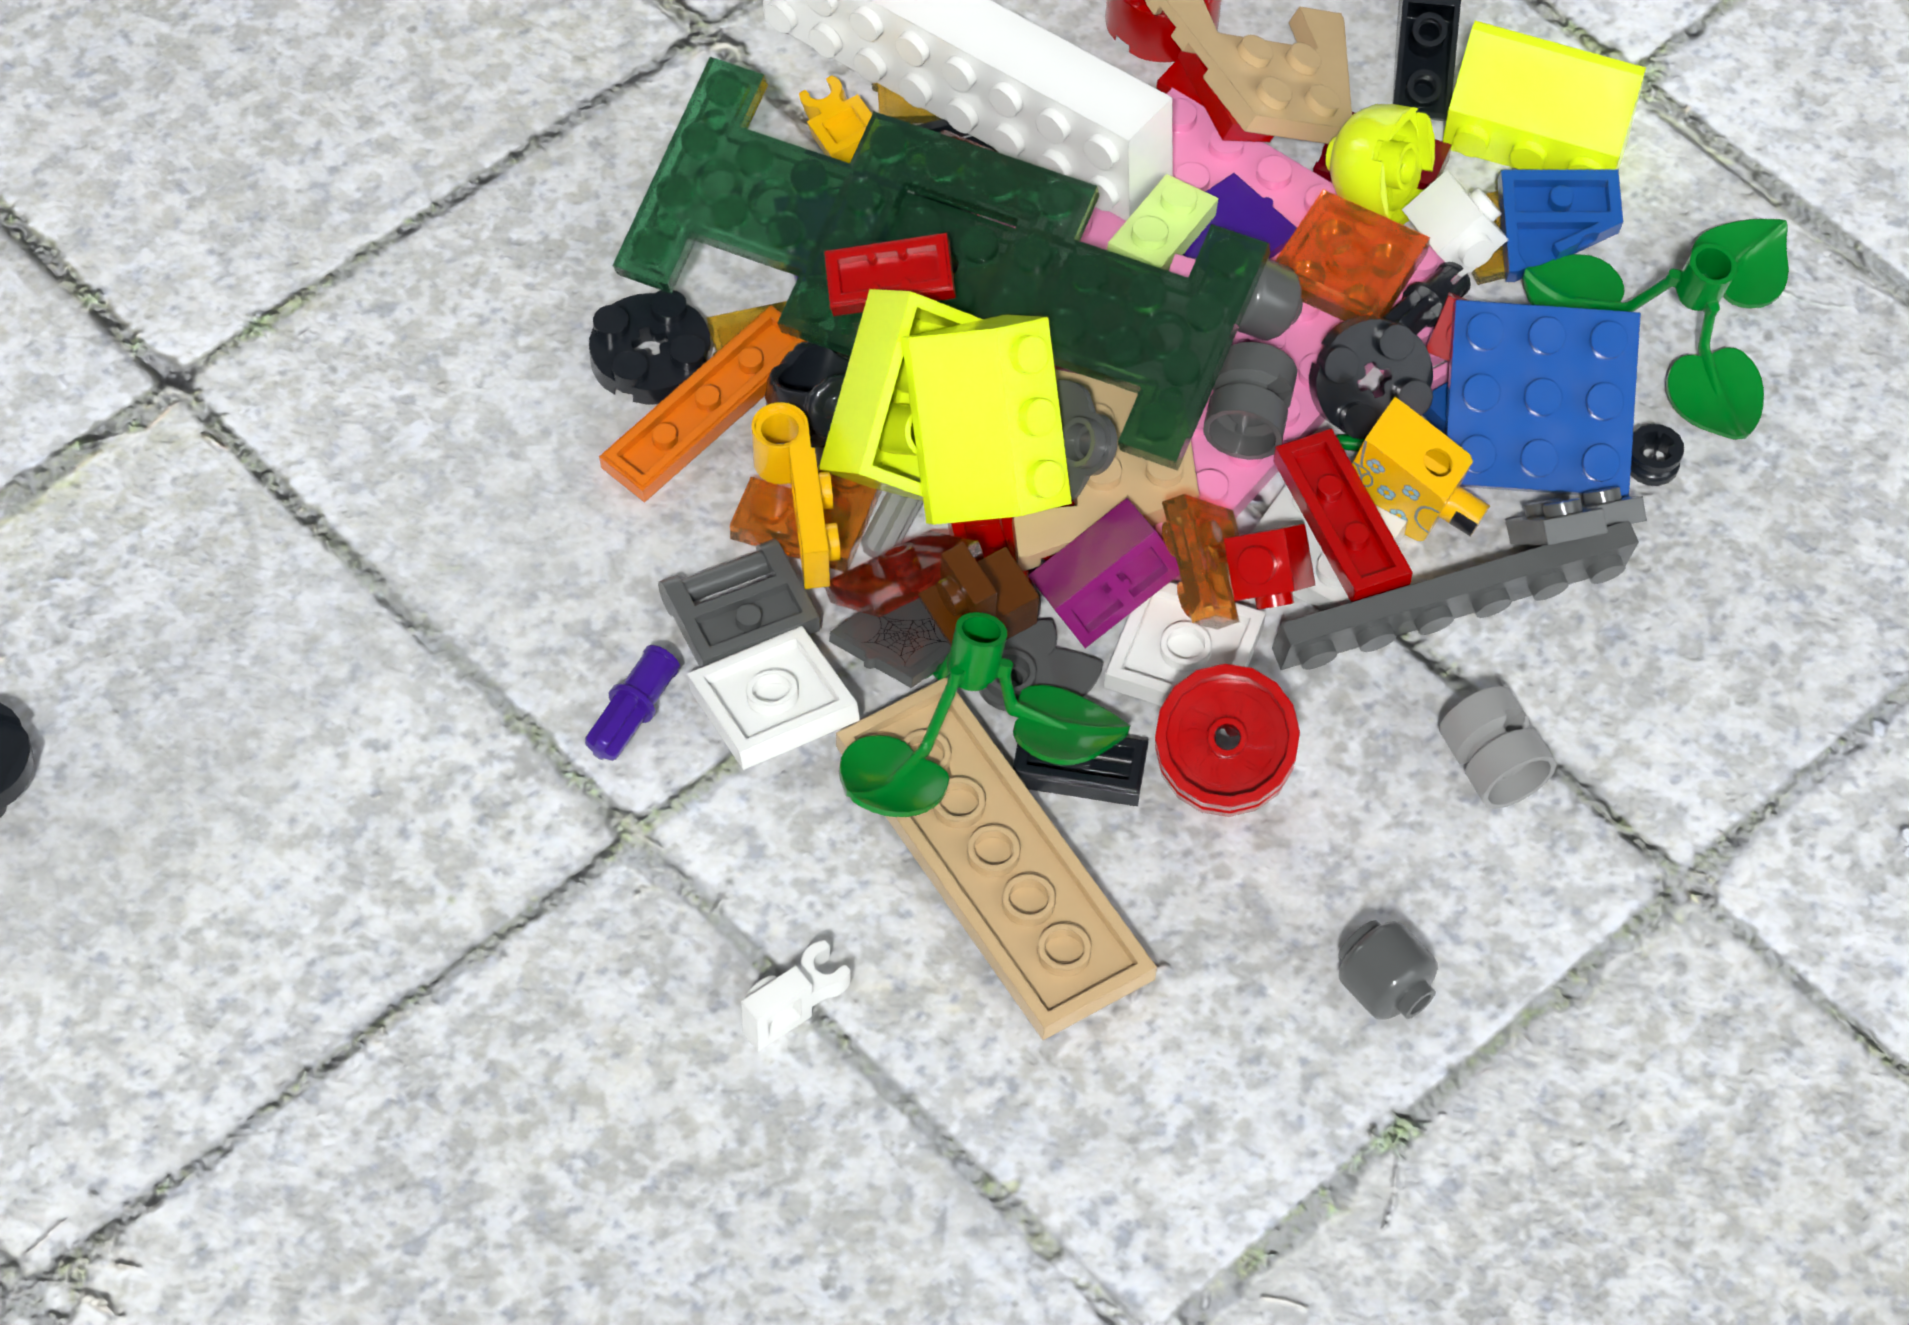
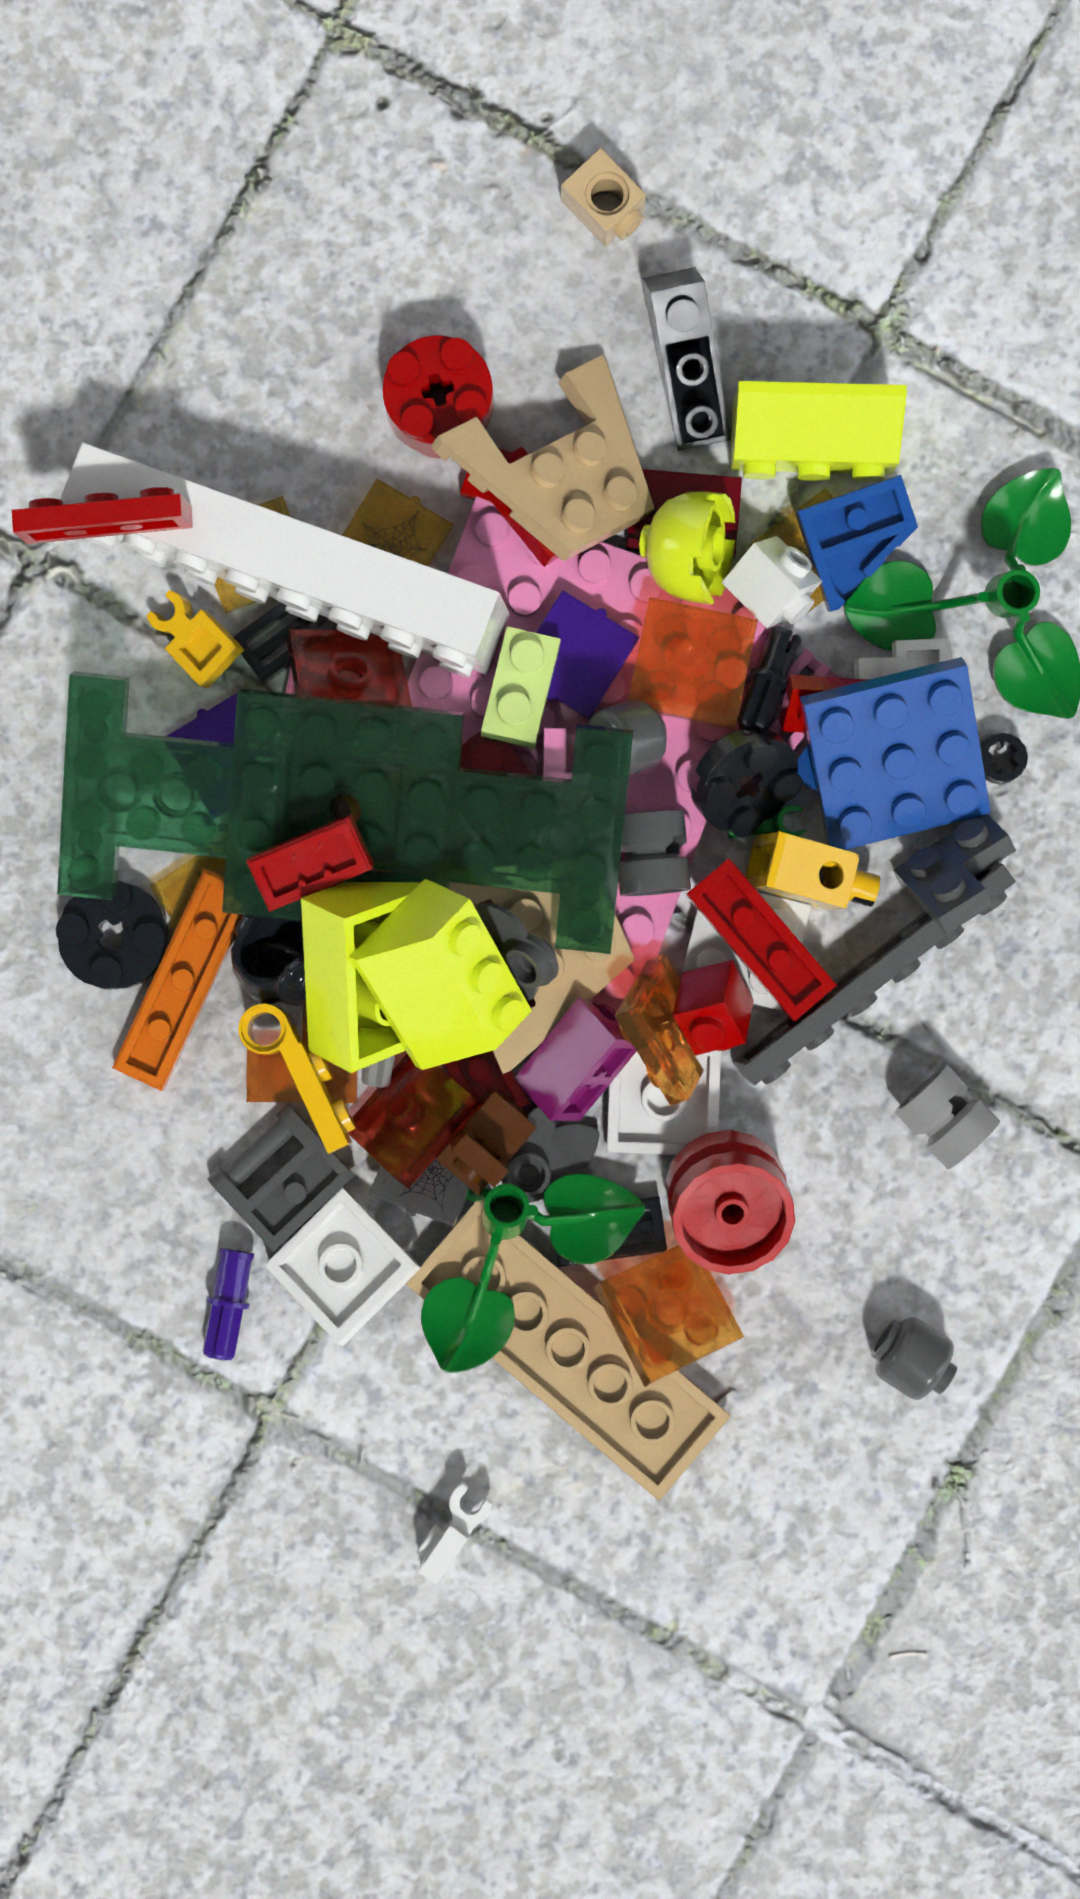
camera: 15 degrees left, 30 degrees up
(1121, 839) = (667, 1314): none -> clear orange plate

